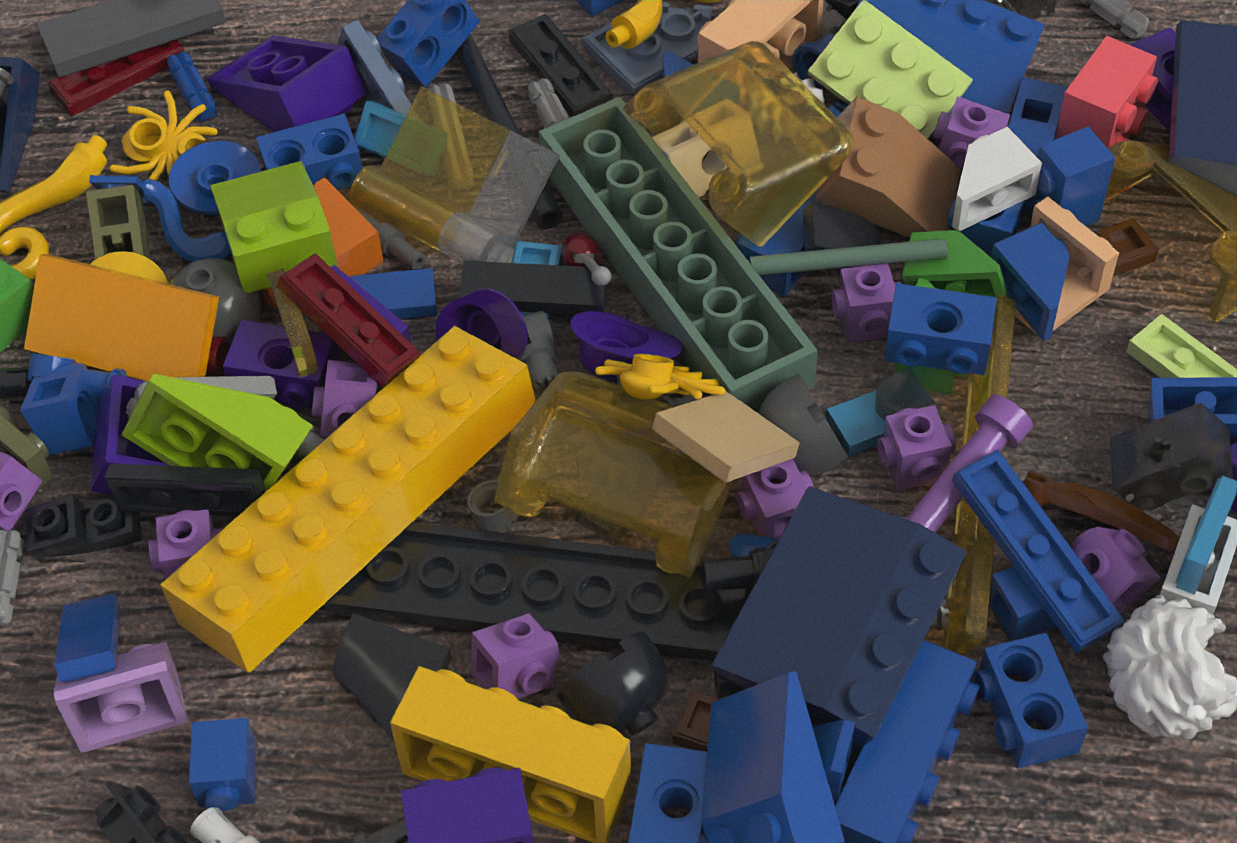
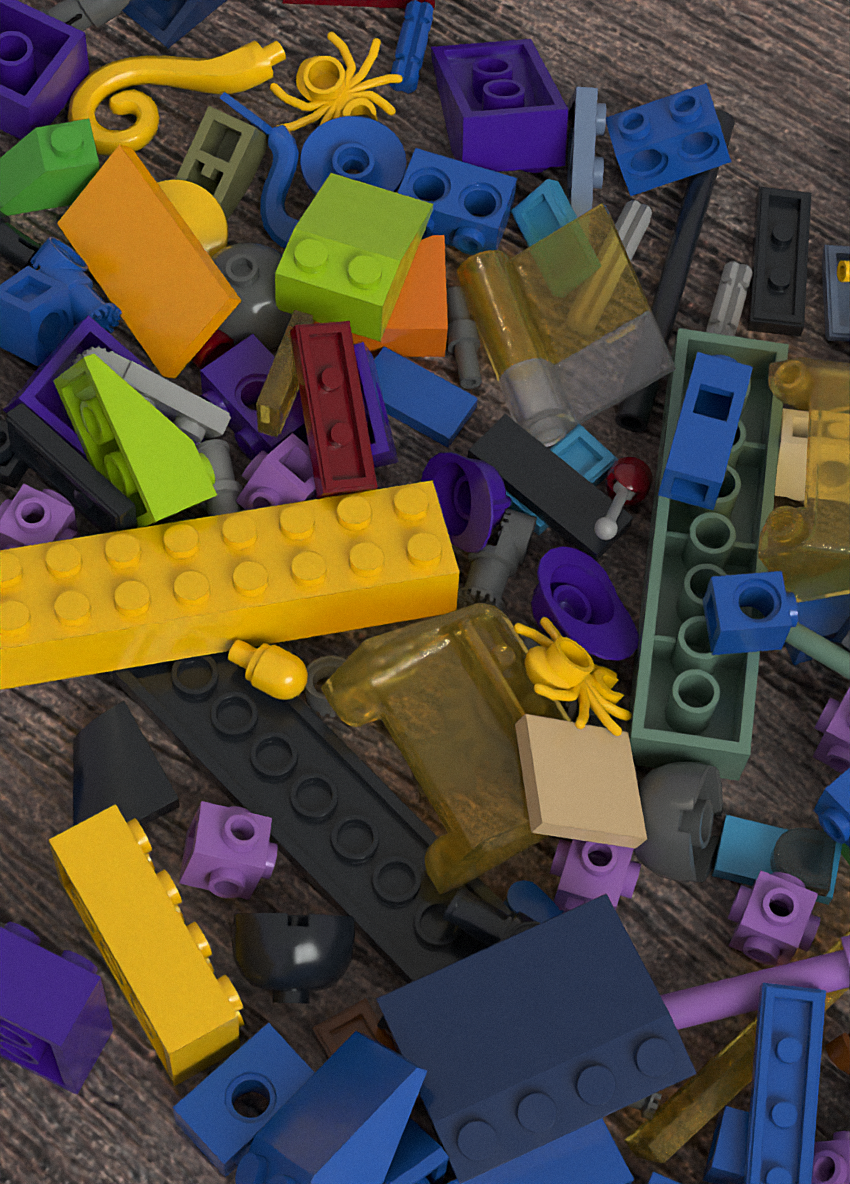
camera: 30 degrees right, 10 degrees up
(443, 520) = (270, 669): none -> yellow cylinder
(617, 174) = (705, 430): none -> blue brick
(742, 261) = (735, 632): none -> blue brick

